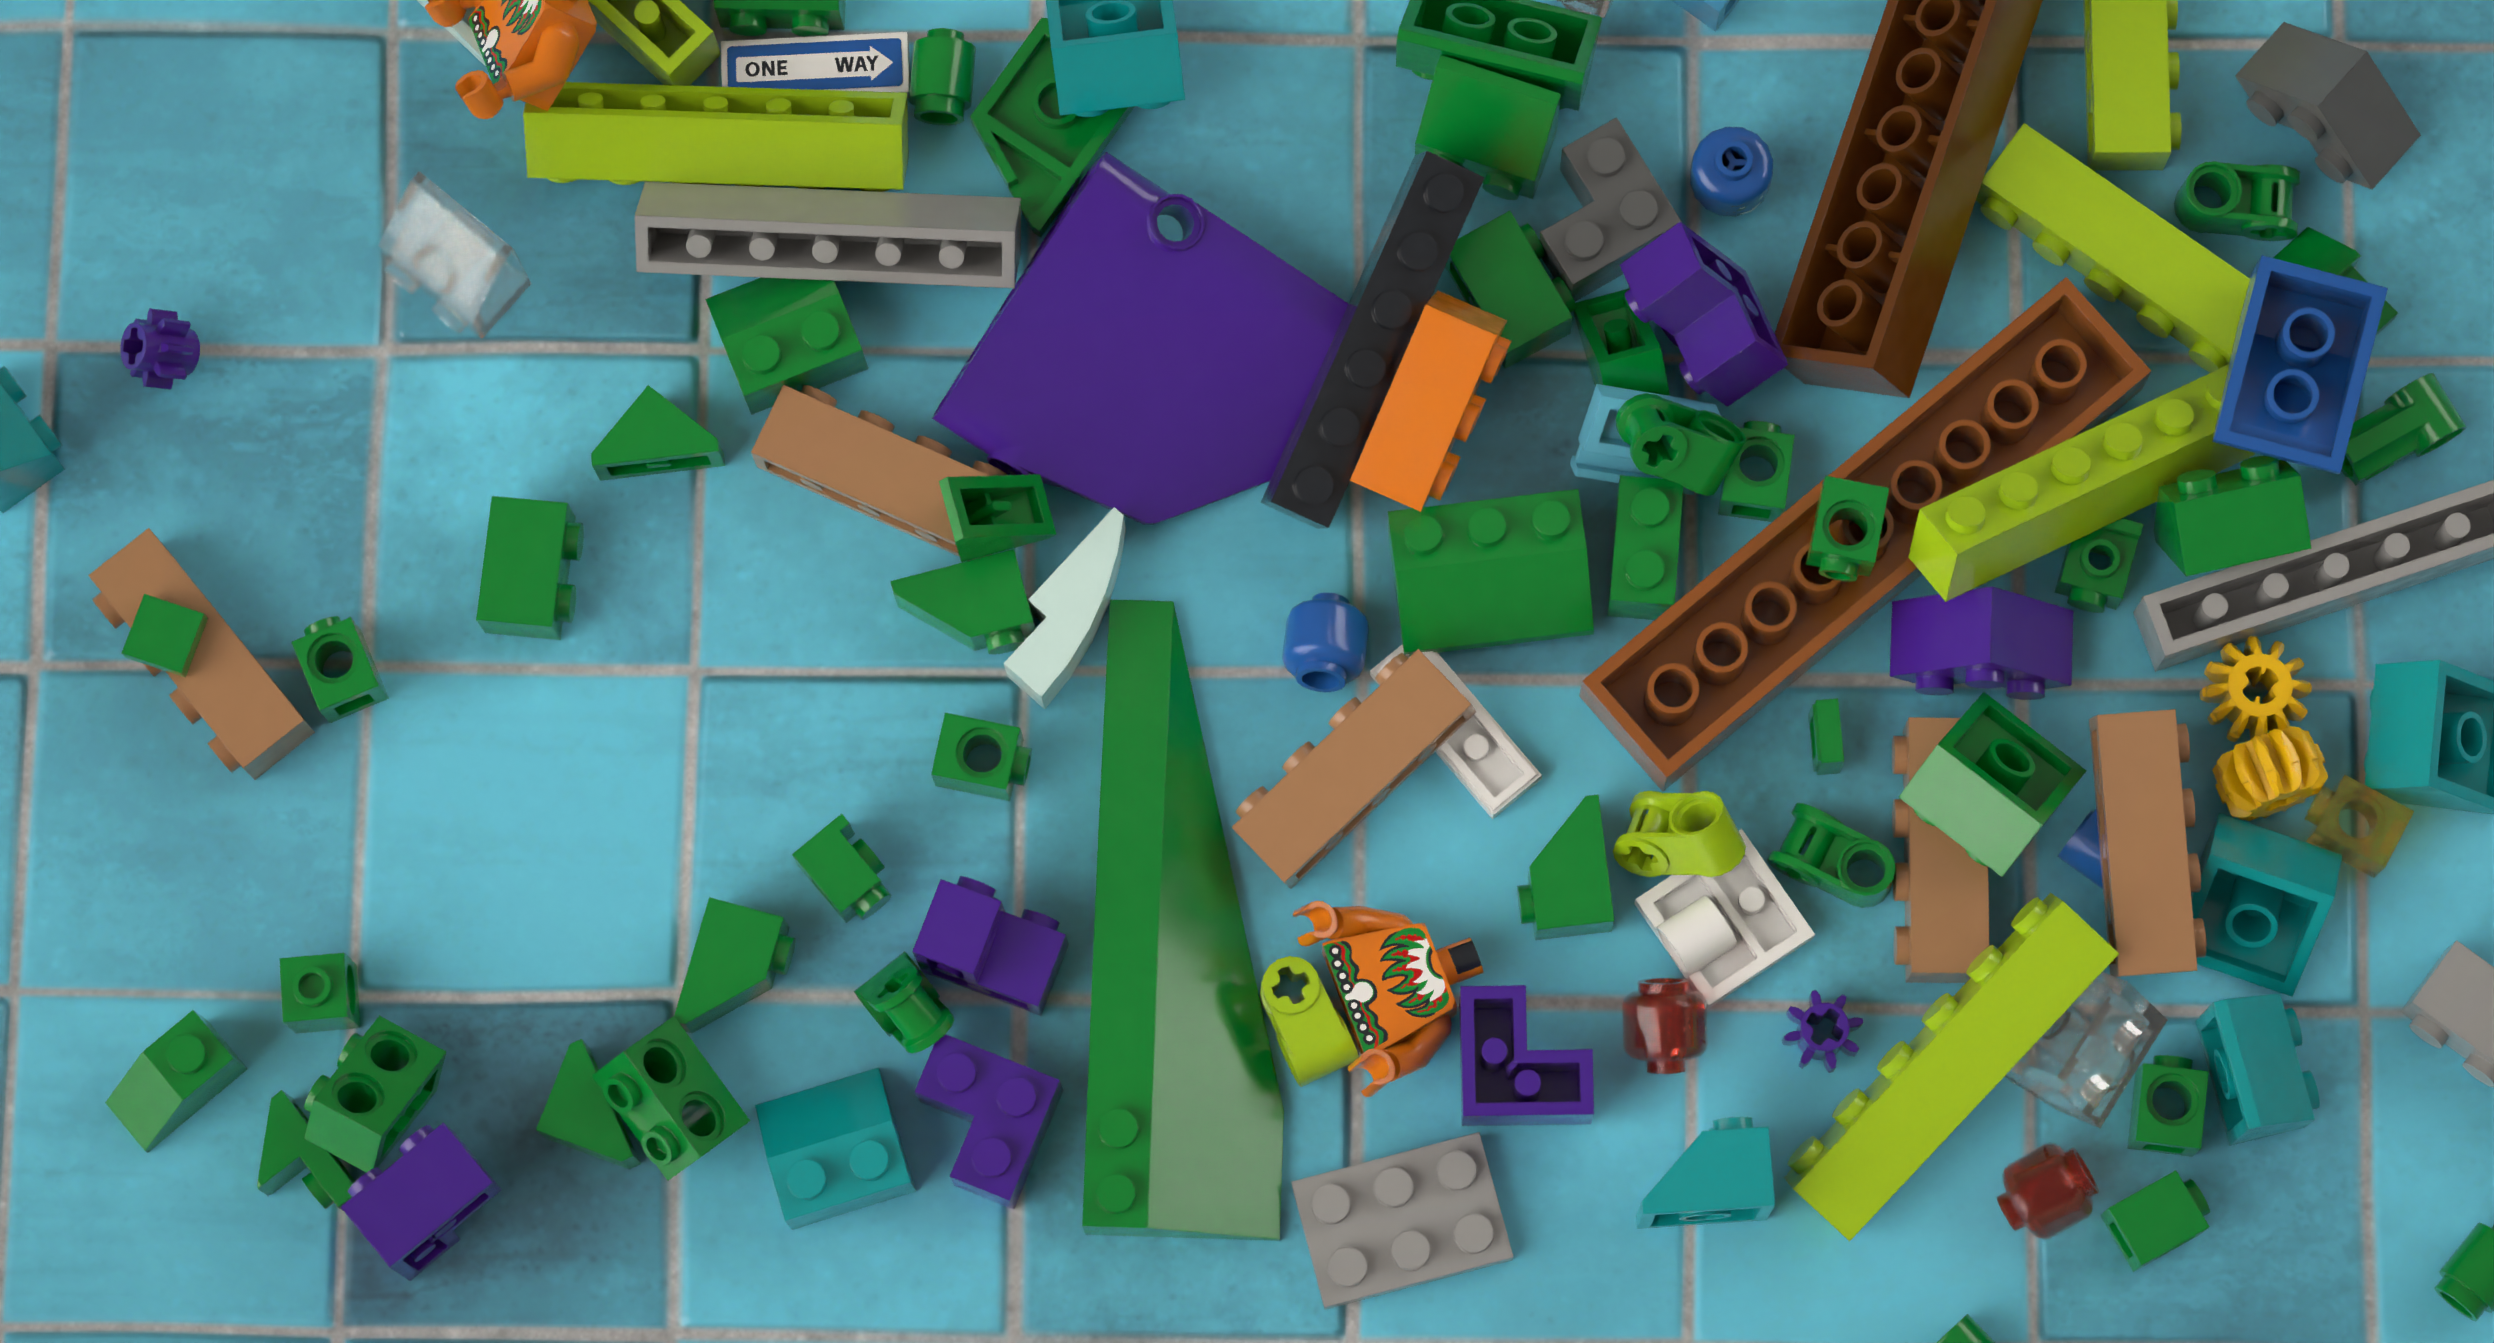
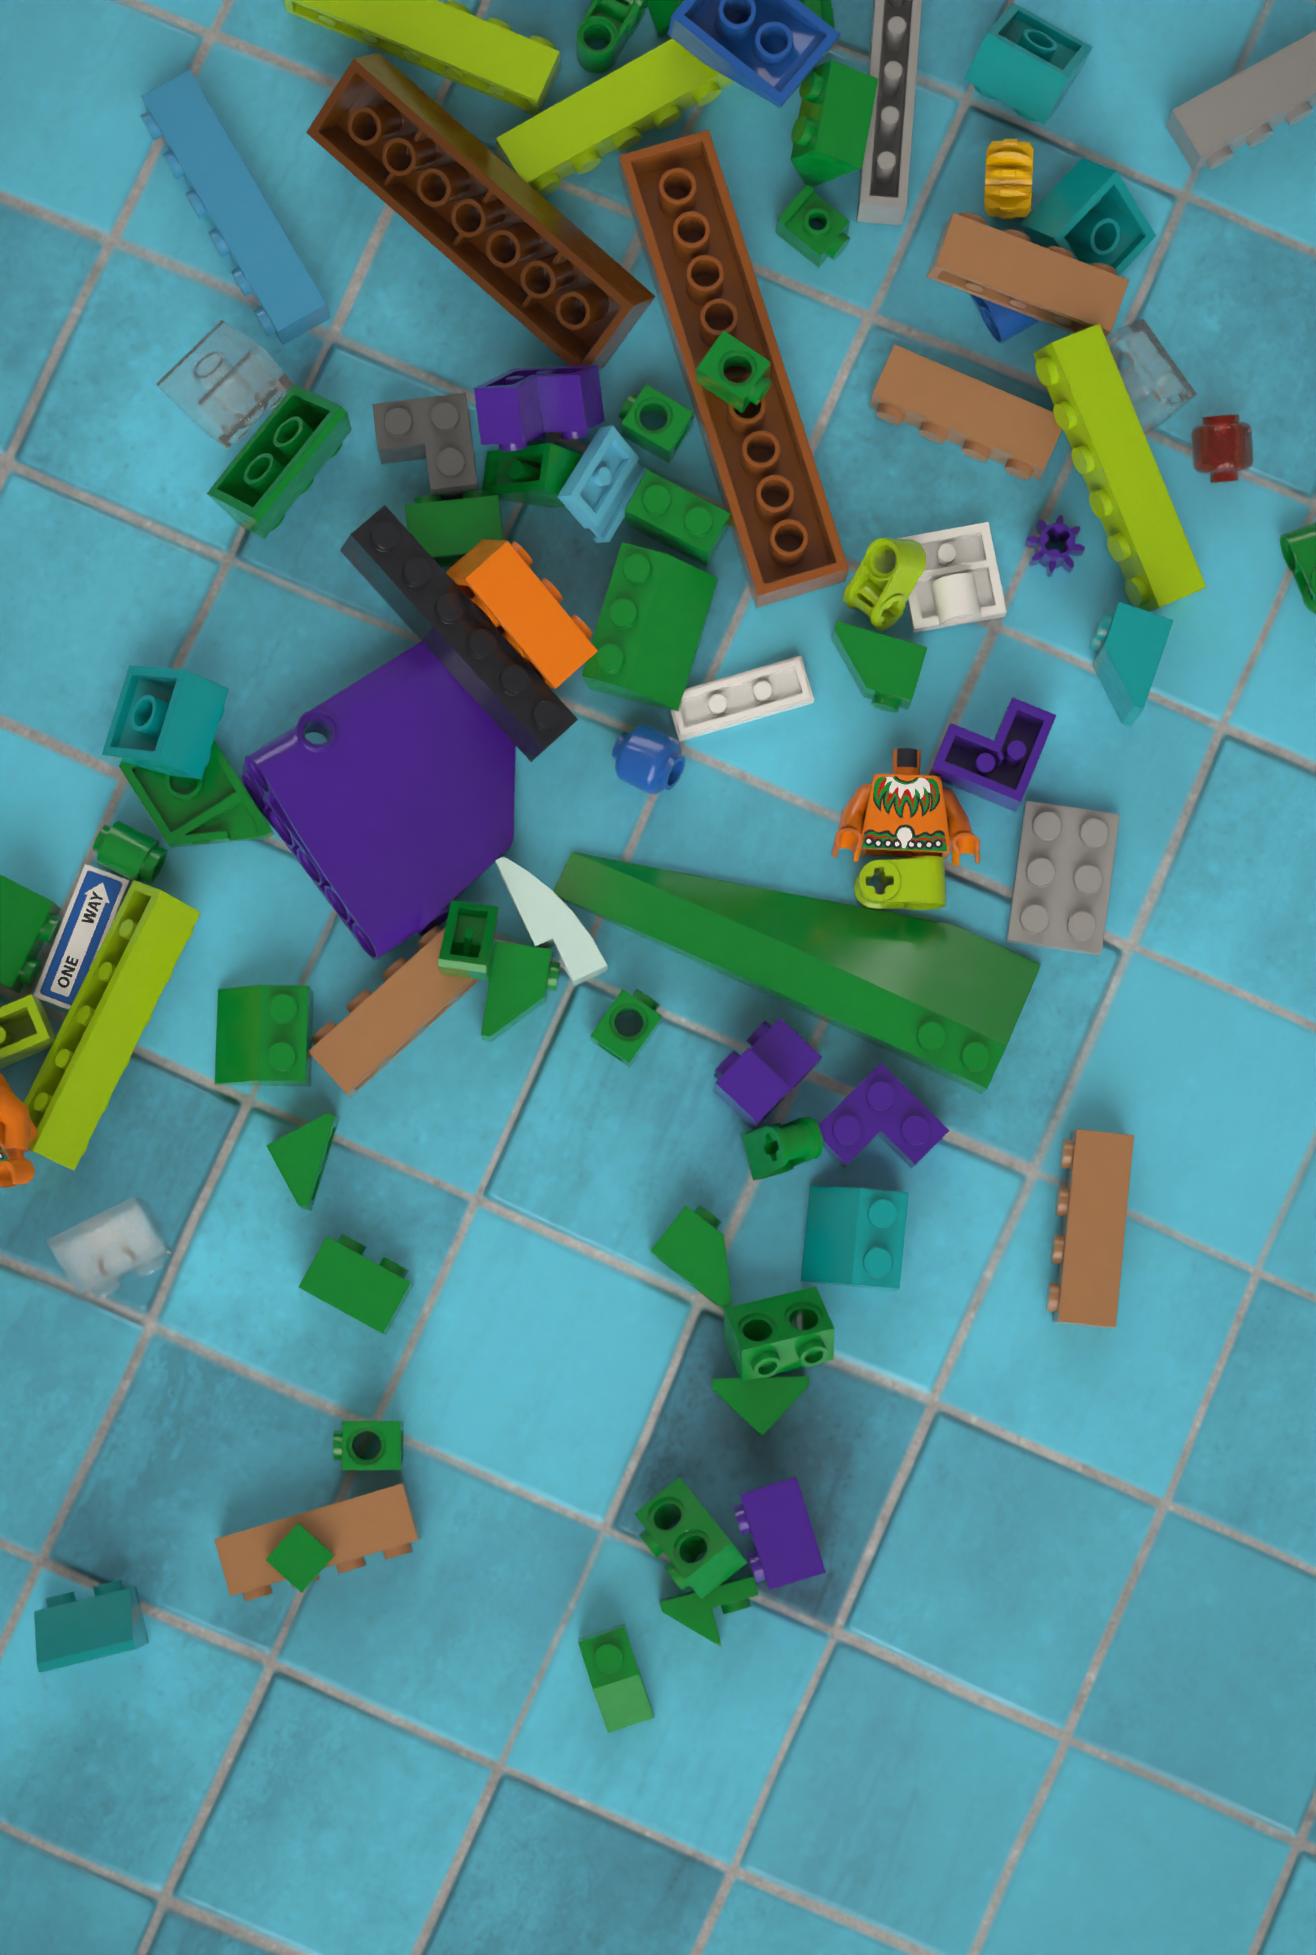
camera: 75 degrees left, 5 degrees up
(160, 349) = (83, 1481): dark purple gear -> none
(319, 993) = (598, 1550): green brick -> none
(828, 235) = (211, 976): light grey brick -> none
(843, 871) = (667, 1152): green brick -> none
(1353, 767) = (745, 775): medium nougat brick -> none
(1489, 126) = (338, 494): green slope -> none
(1664, 1024) = (1006, 646): clear red head -> none
(1679, 442) = (621, 459): green piece -> none
(1722, 188) = (447, 359): blue head -> none
(1826, 737) = (857, 456): green tile -> none
(1830, 855) = (934, 492): green piece -> none
(1982, 641) = (840, 321): dark purple brick -> none
(1991, 784) = (946, 357): green slope -> none
(2070, 489) = (768, 214): lime brick -> none
(2155, 1133) = (1217, 336): green brick -> none
(2157, 1219) = (1270, 386): green brick -> none
(2233, 678) = (958, 154): yellow gear -> none
(2256, 1067) = (1199, 278): teal slope -> none
(2384, 816) = (1077, 126): clear yellow brick -> none

